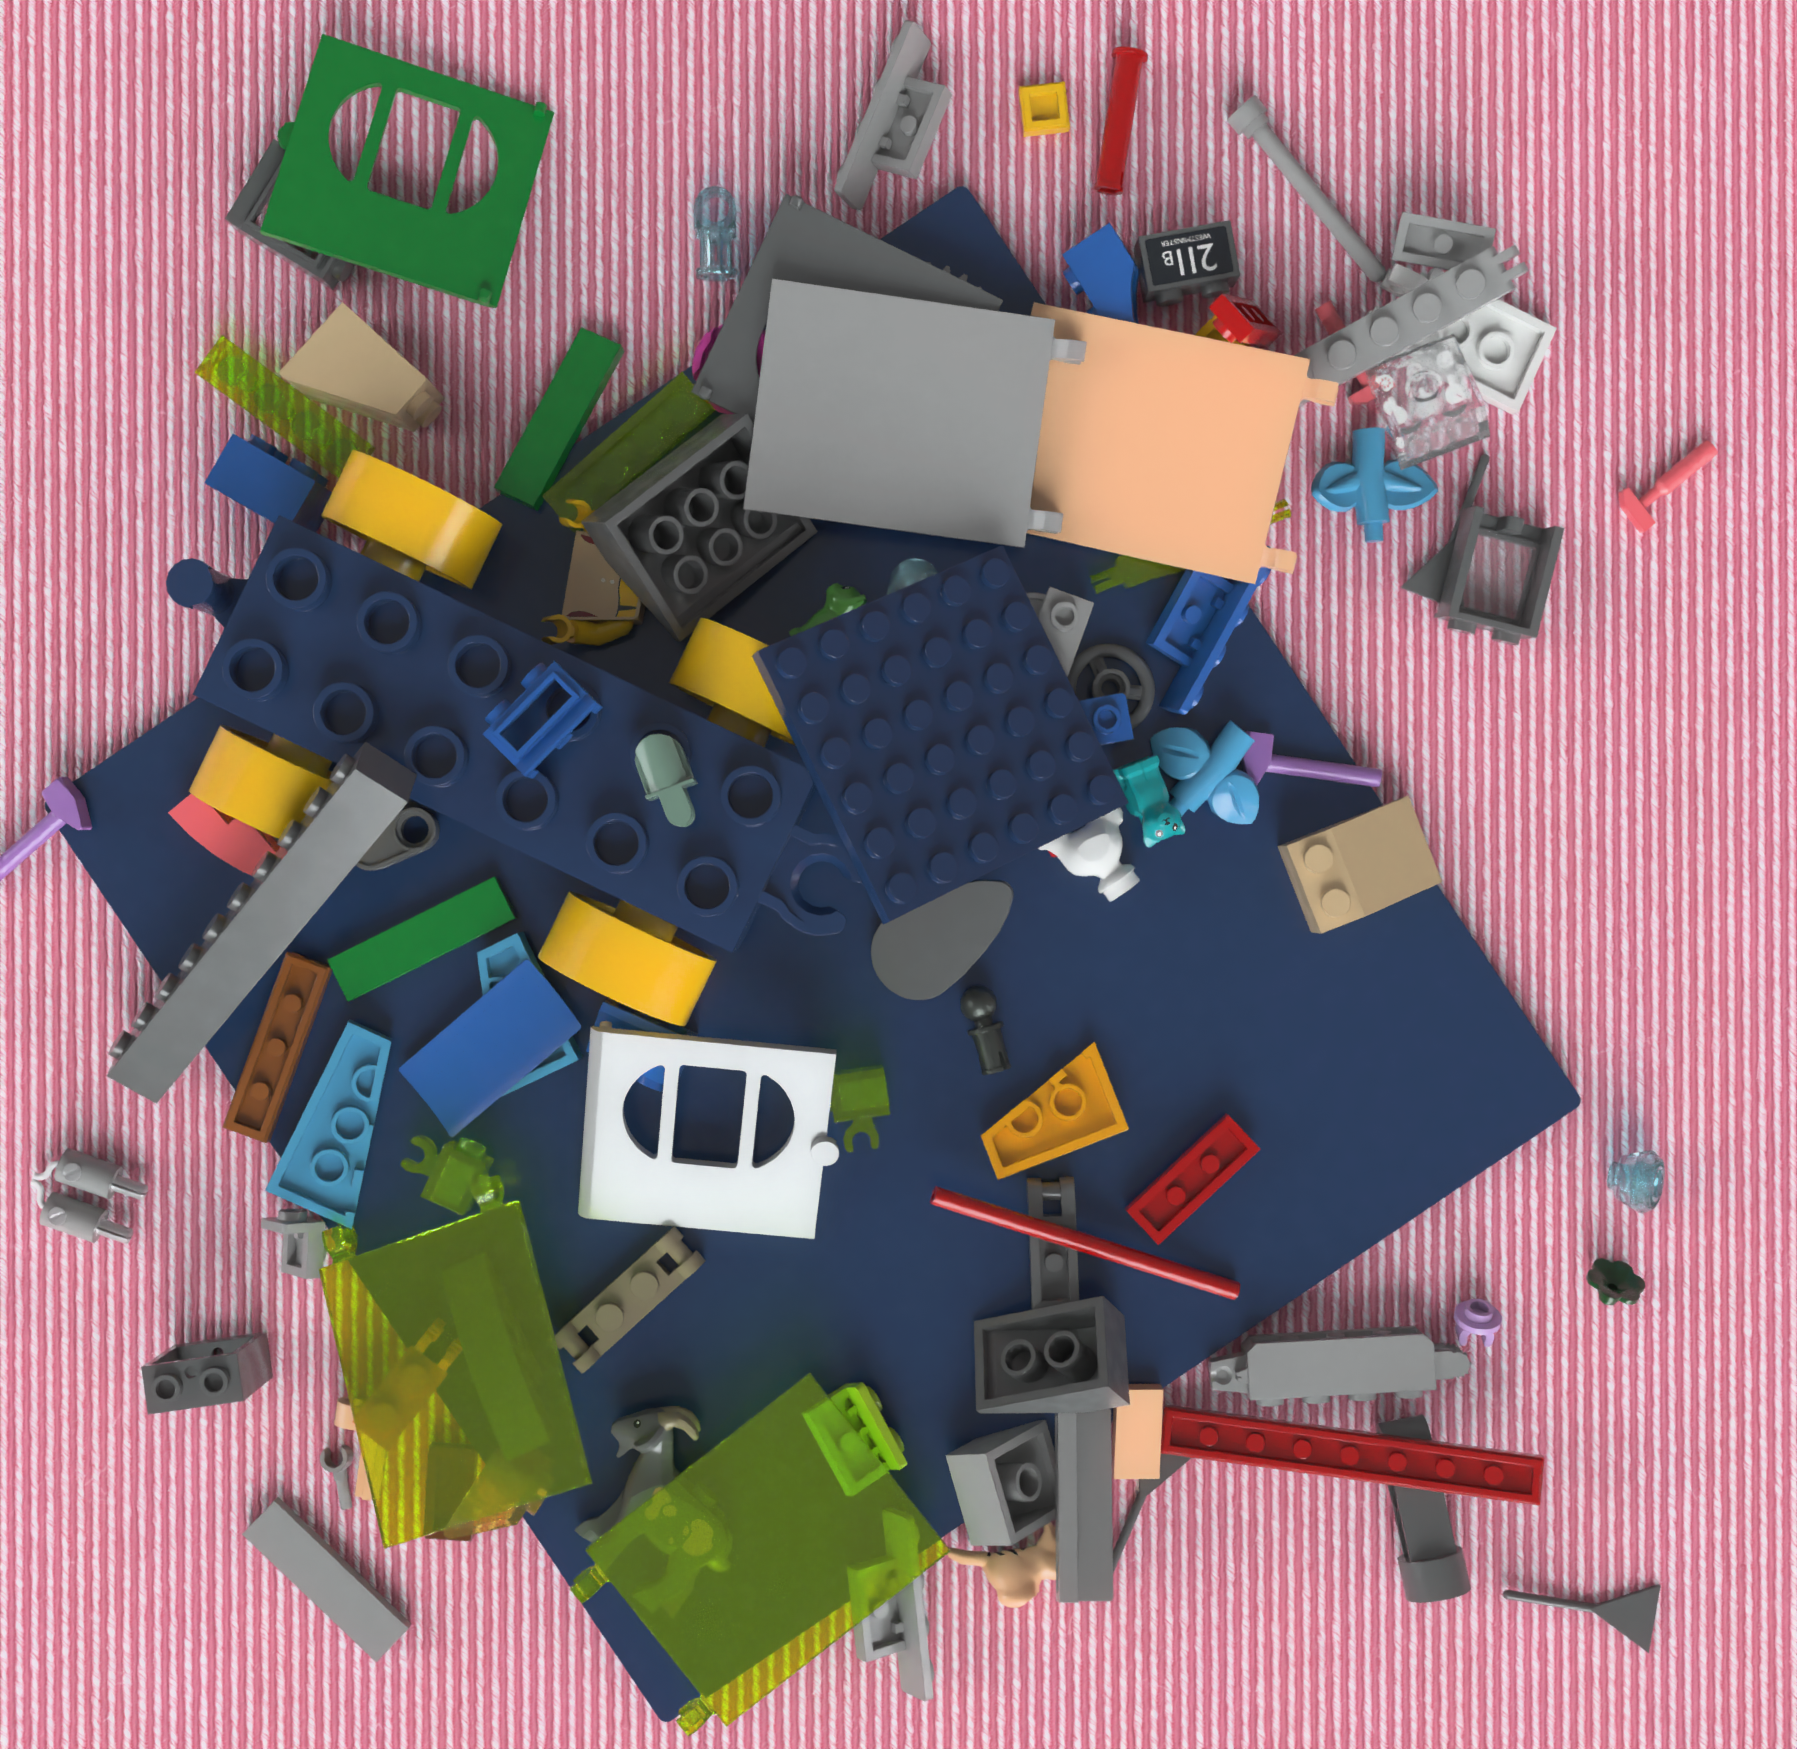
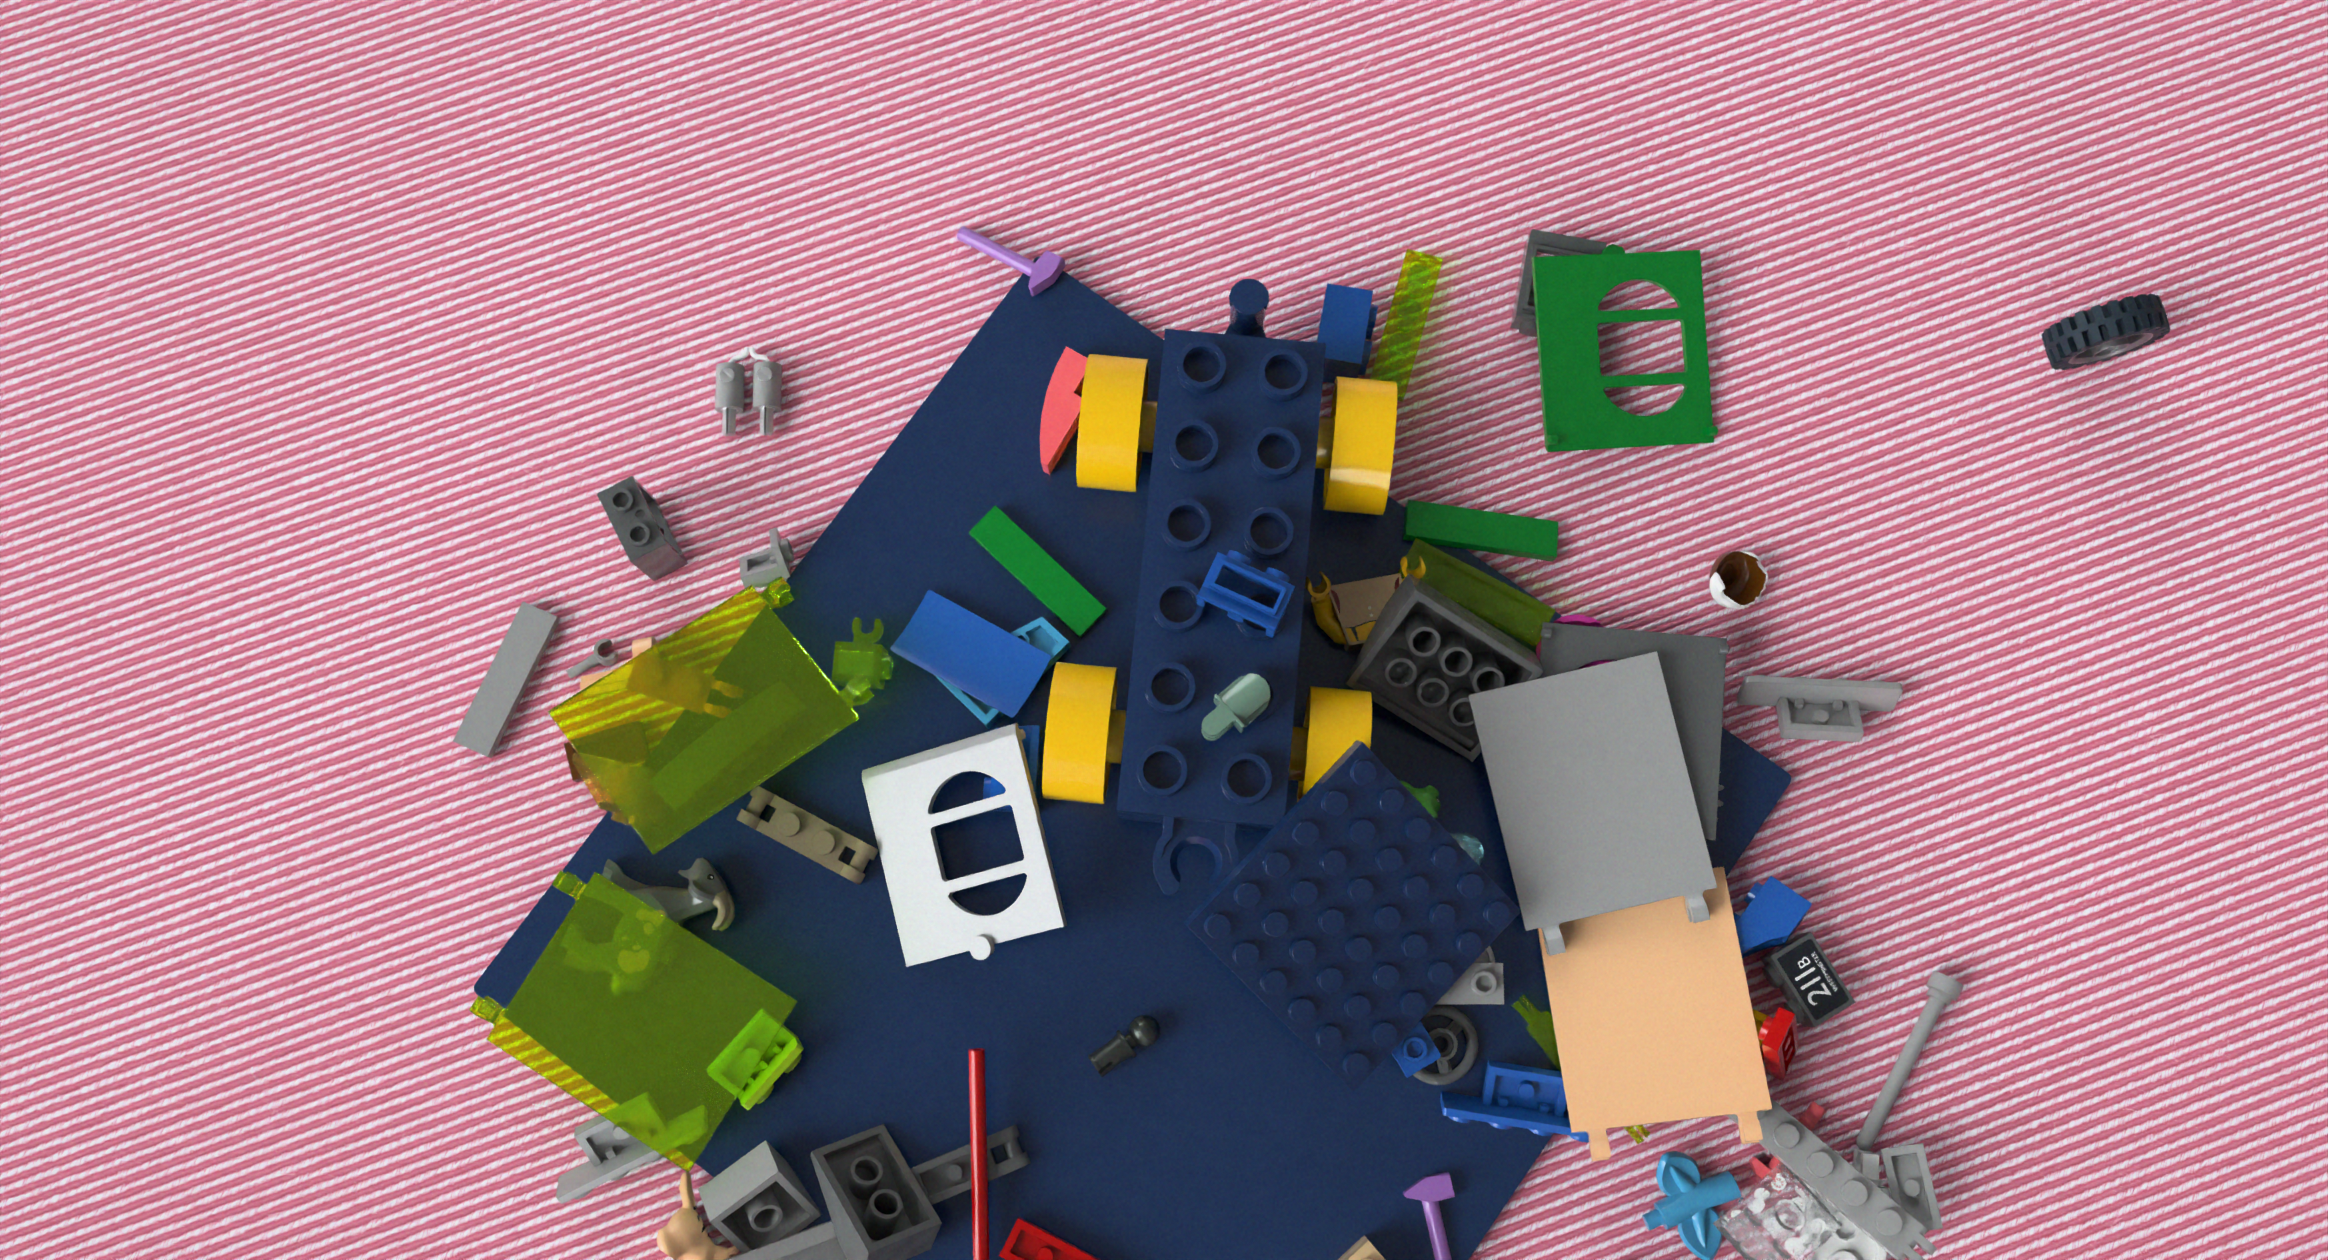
camera: 75 degrees right, 10 degrees down
(261, 920) = (1011, 442): brick -> none
(278, 1047) = (914, 492): dark orange tile -> none
(333, 1137) = (853, 559): dark azure wing -> none
(362, 373) = (1455, 370): tan slope -> none
(393, 845) = (1102, 515): dark grey piece -> none
(715, 234) = (1670, 598): clear light blue connector -> none
(721, 152) = (1737, 579): none -> reddish brown hair
(858, 1097) = (1033, 961): clear neon green brick -> none
(940, 940) = (1186, 978): dark grey shield -> none
(1044, 109) = (1878, 819): yellow tile -> none
(1058, 1118) = (1075, 1133): light orange wing -> none
(1096, 852) = (1302, 1082): white animal -> none
(1119, 119) = (1896, 883): red pin -> none
(1149, 799) = (1361, 1110): teal animal -> none
(1209, 772) = (1402, 1152): dark azure plant -> none

